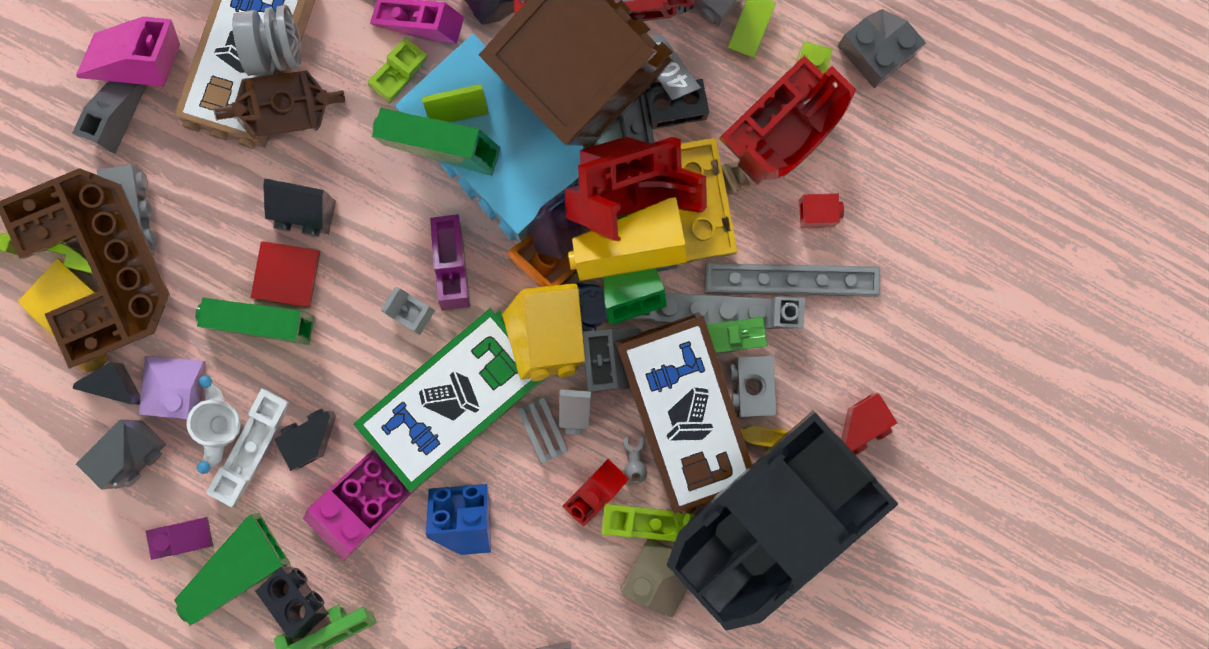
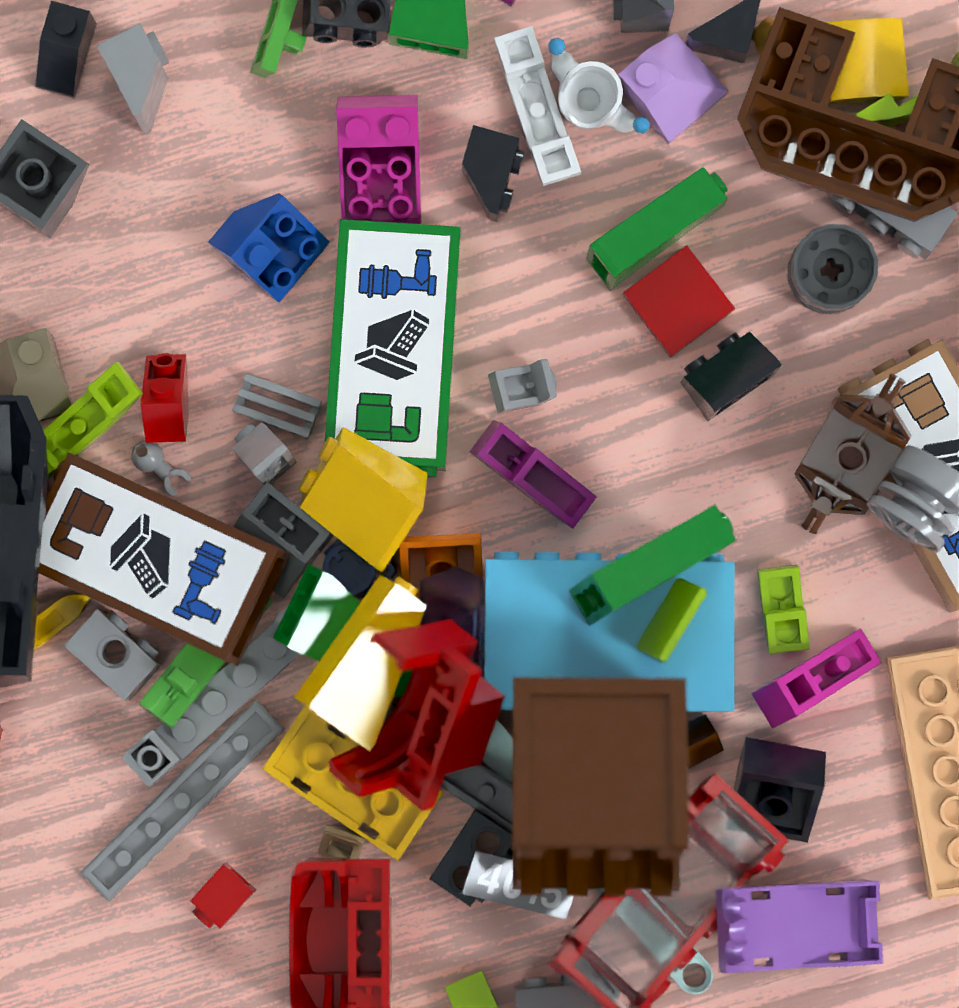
camera: 140 degrees right, 0 degrees up
(178, 194) = (845, 250): none -> dark grey wheel

